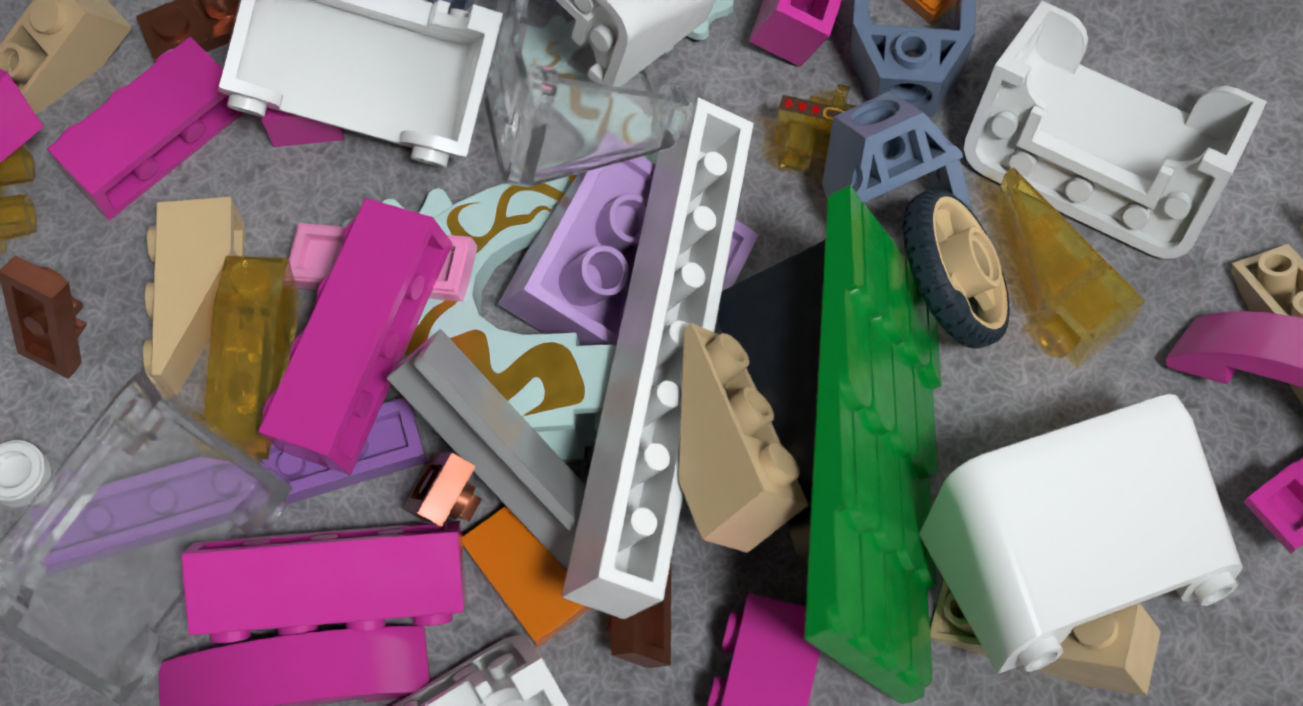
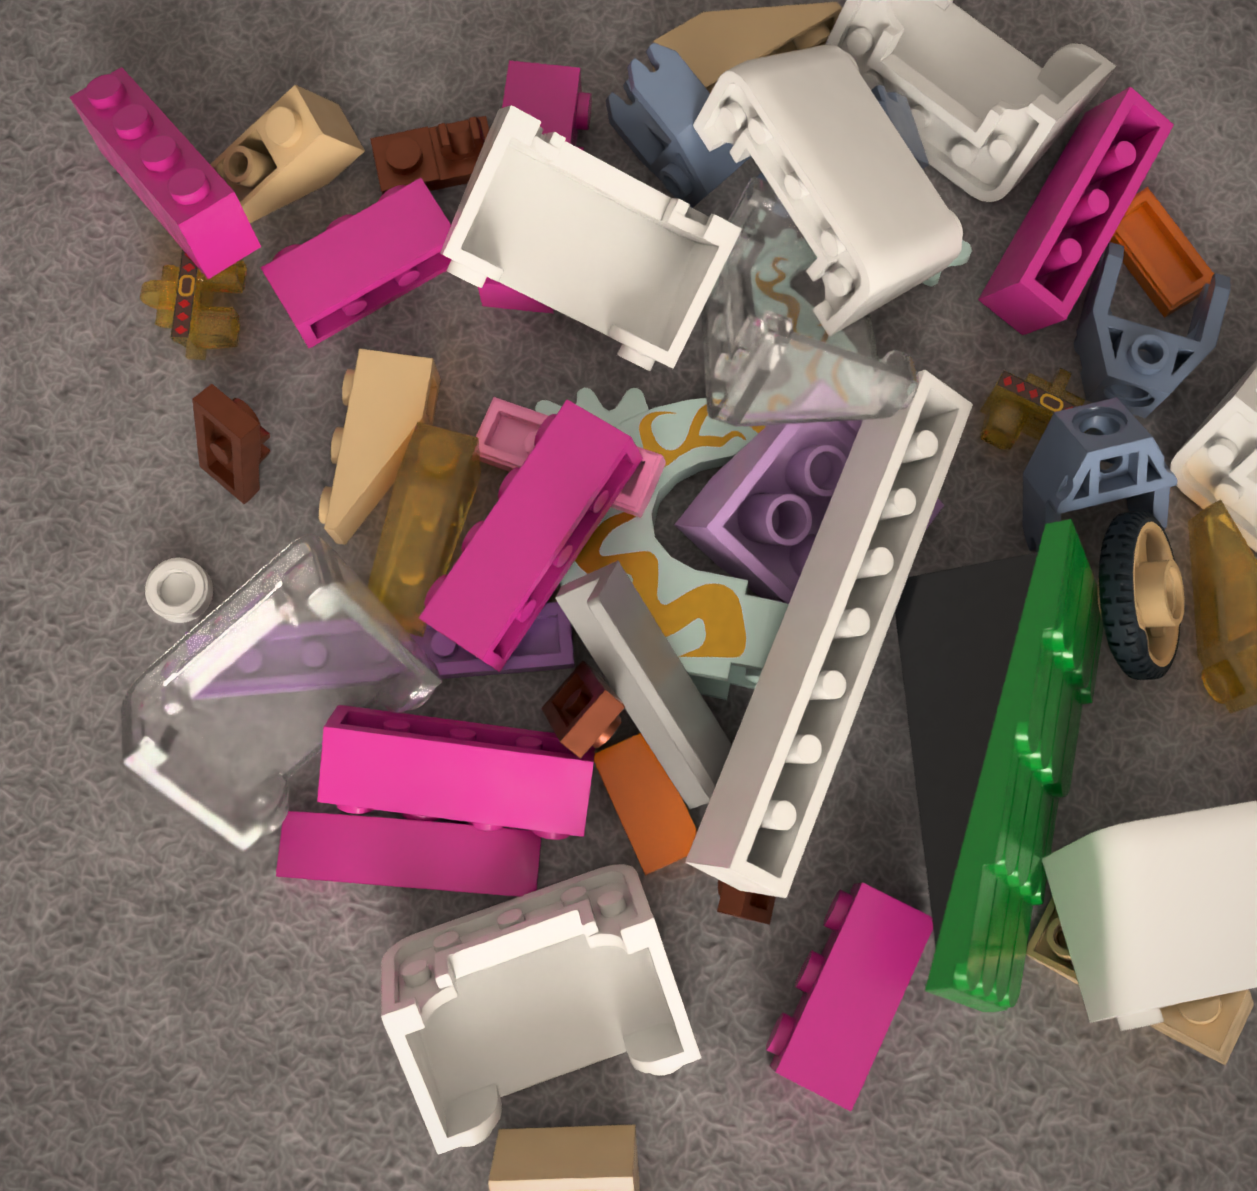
camera: 10 degrees right, 10 degrees up
(730, 457) = (882, 758): tan slope -> none

